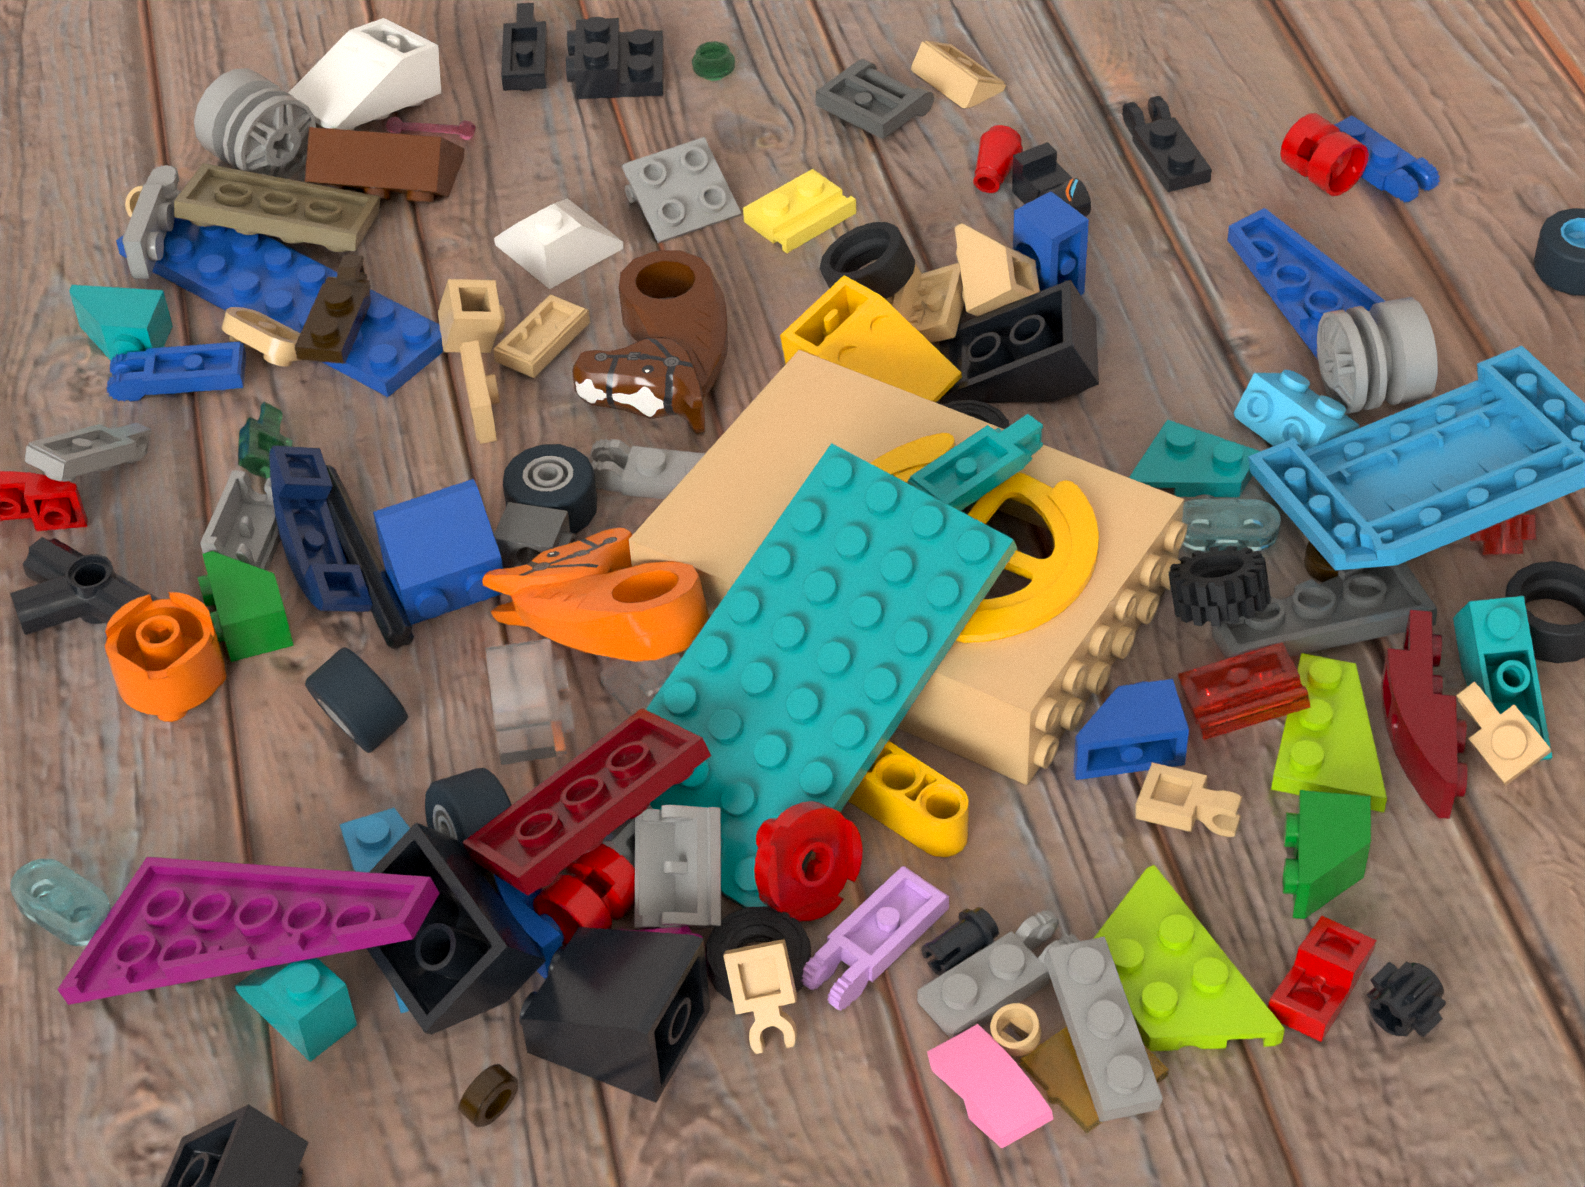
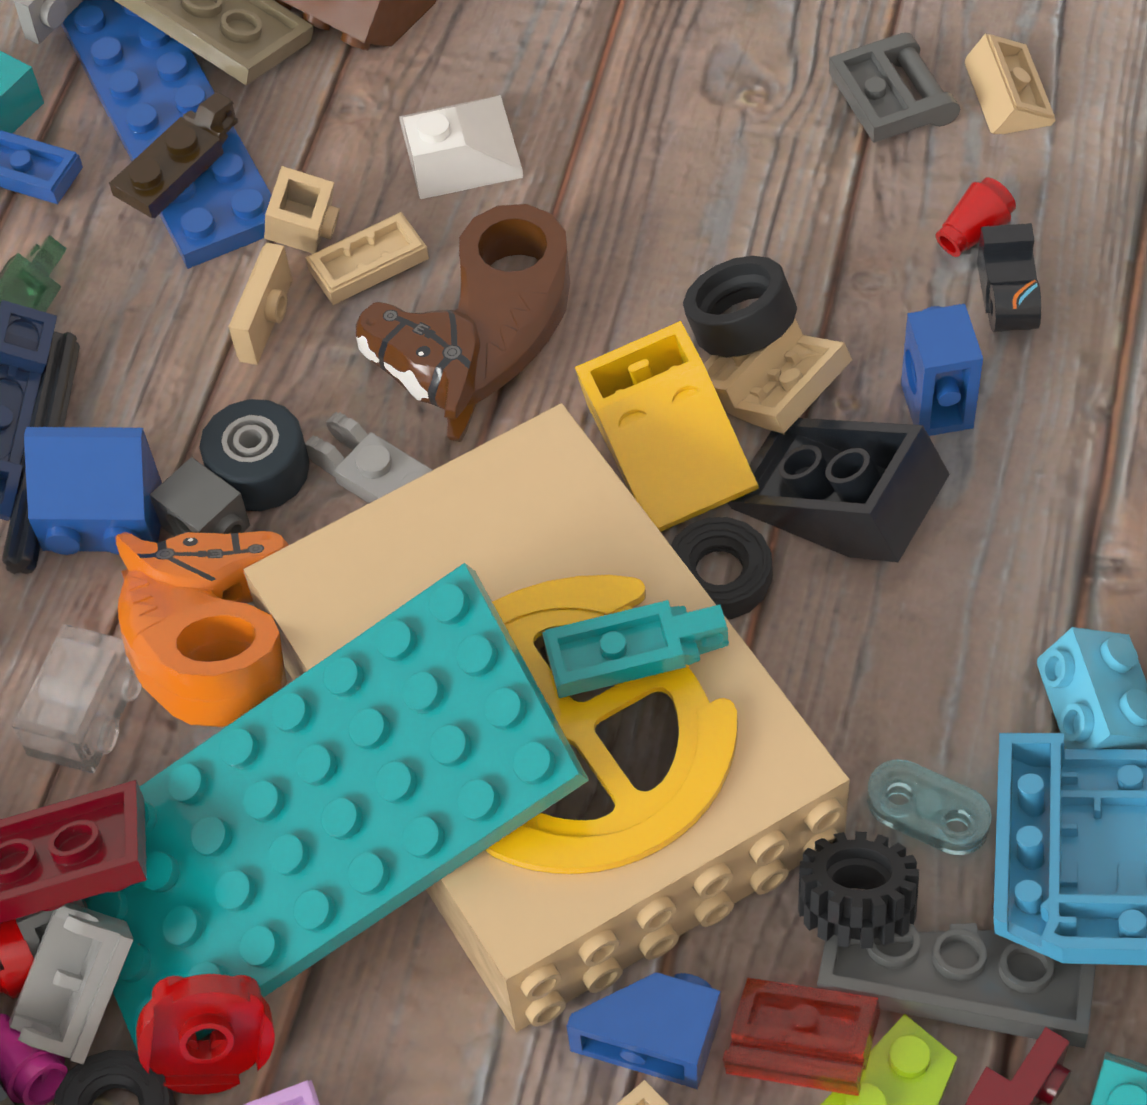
camera: 30 degrees right, 10 degrees up
(262, 334) = (101, 146): tan plate -> none
(680, 190) = (613, 131): light grey hinge -> none
(799, 210) = (727, 201): light yellow plate -> none
(915, 802) = (377, 1009): yellow beam -> none
(992, 272) = (864, 371): tan slope -> none
(1194, 463) = (944, 706): teal wing -> none

